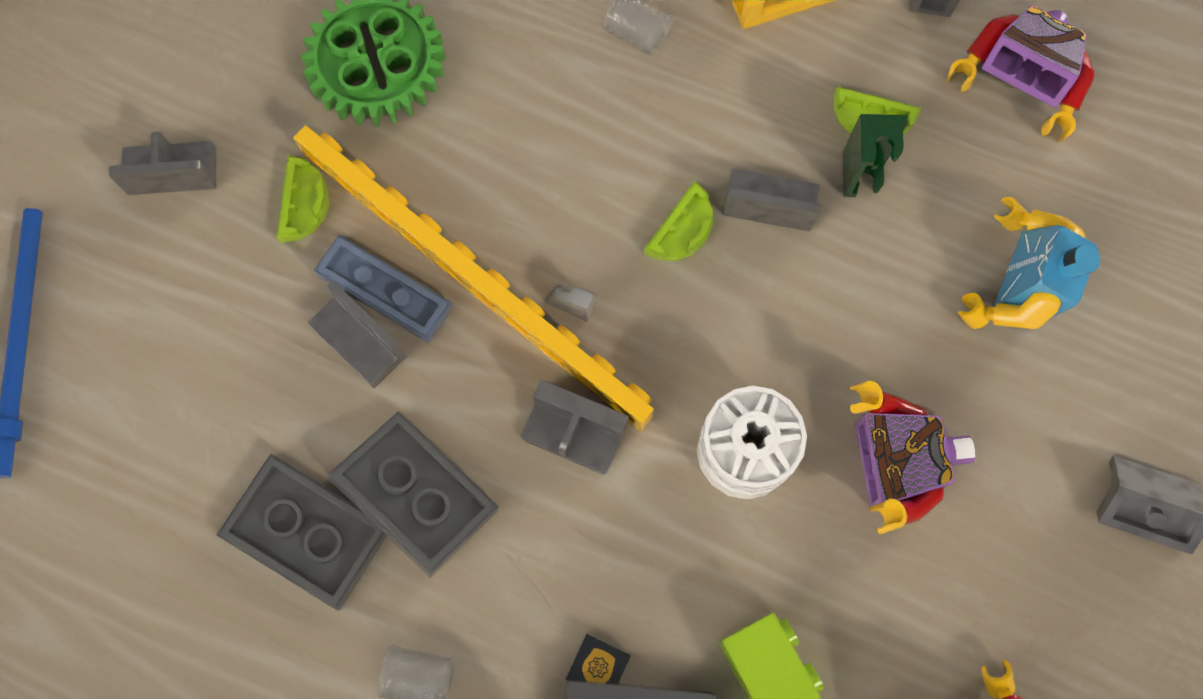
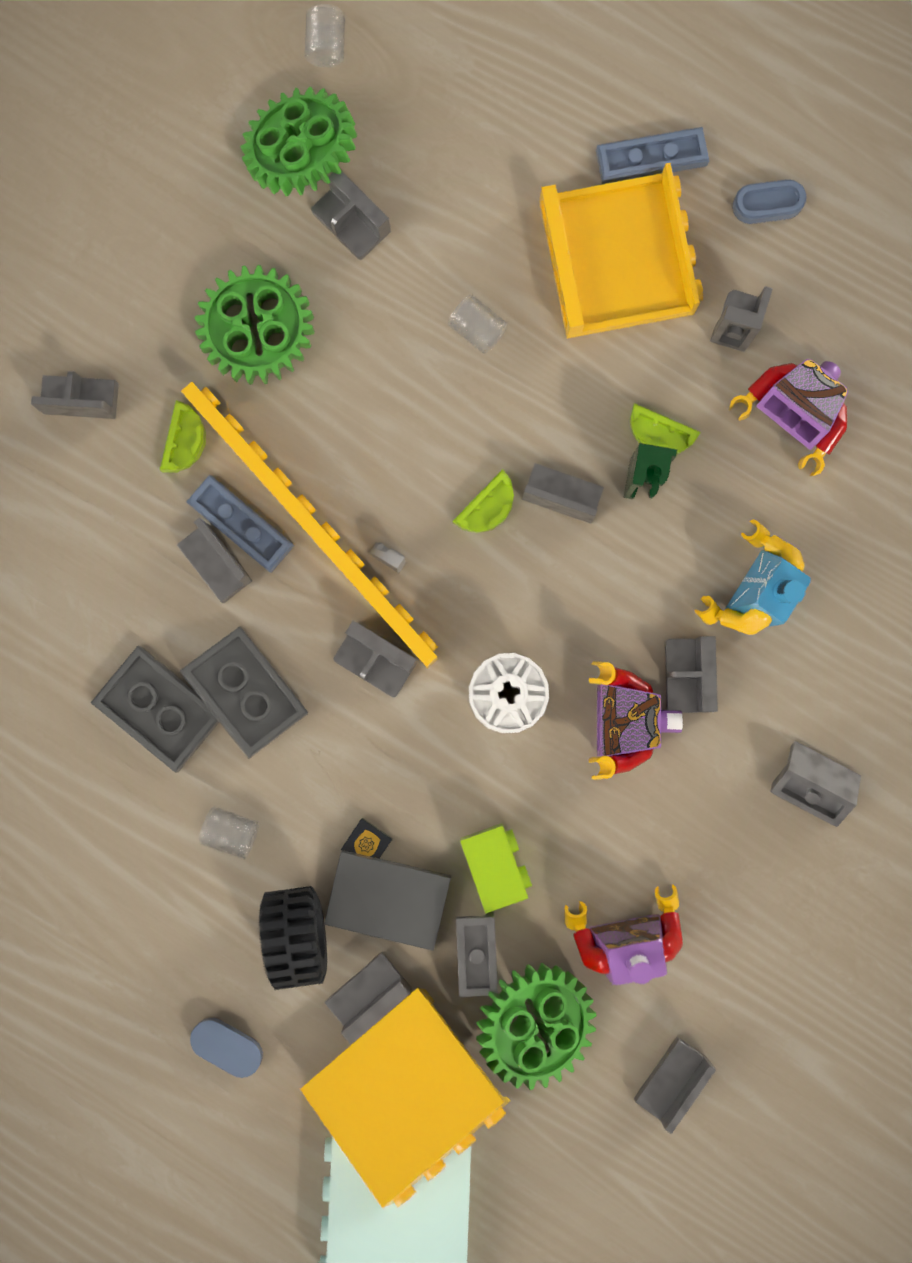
camera: 15 degrees right, 10 degrees up
(972, 390) = (691, 674): none -> flat silver panel

